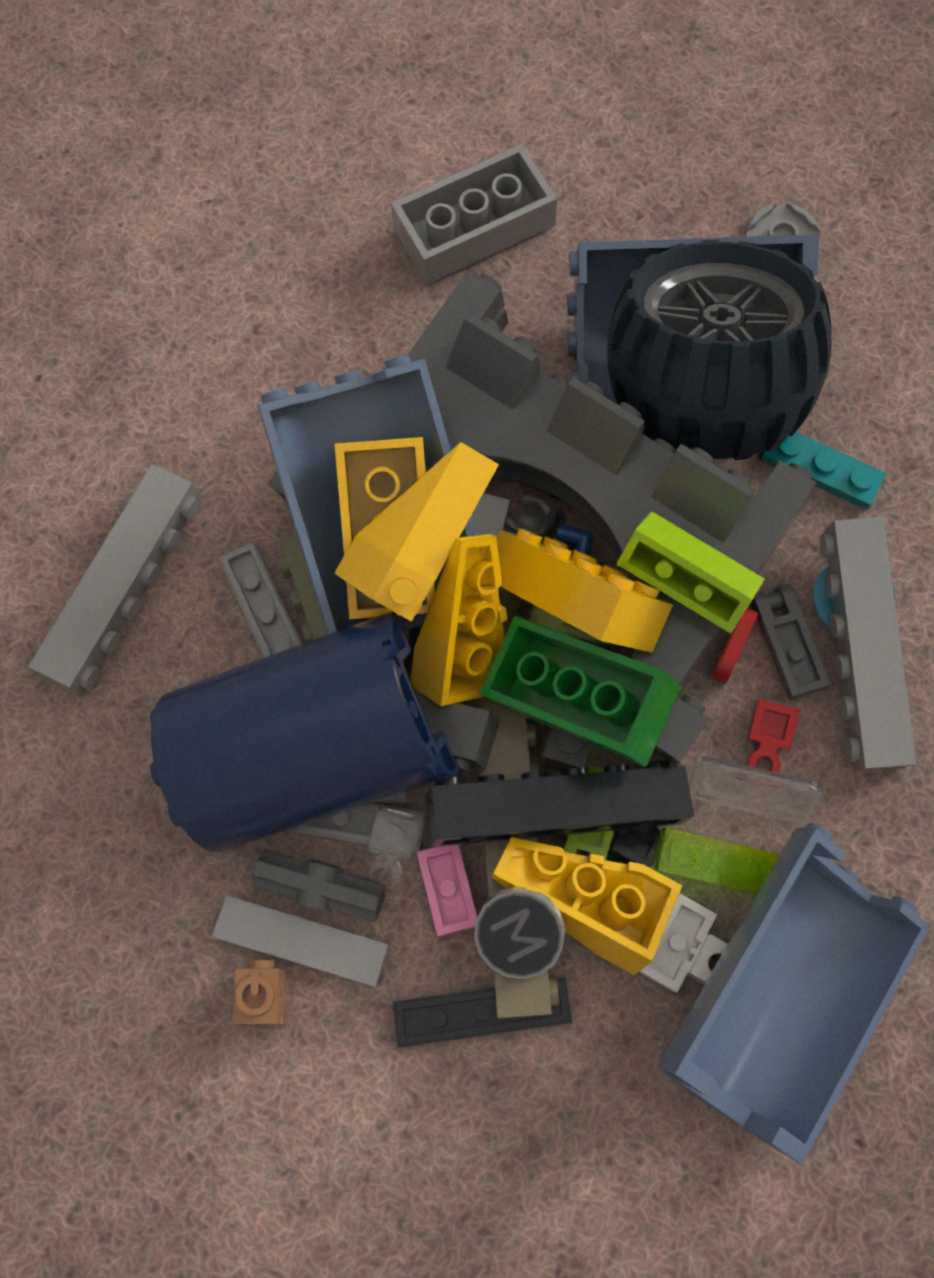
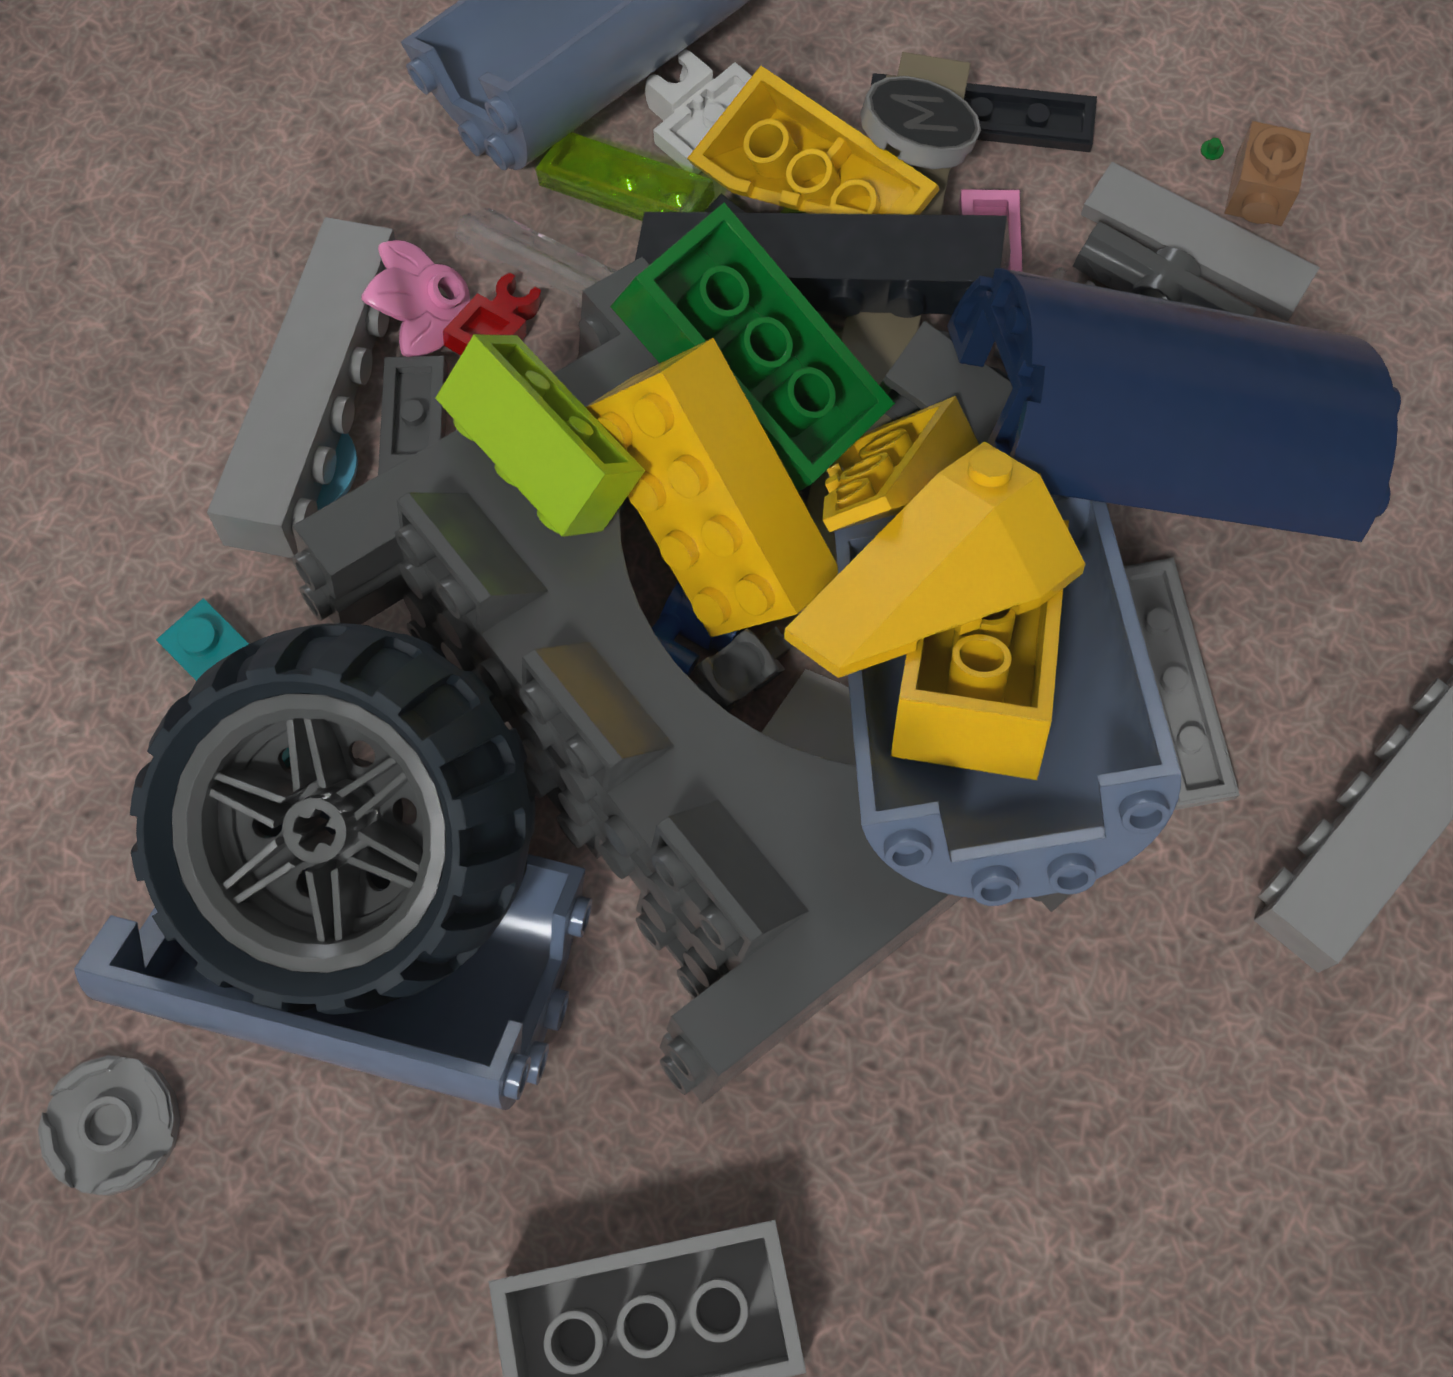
camera: 165 degrees left, 0 degrees up
(303, 1029) = (1212, 149): none -> green piece
(833, 727) = (411, 294): none -> bright pink plate

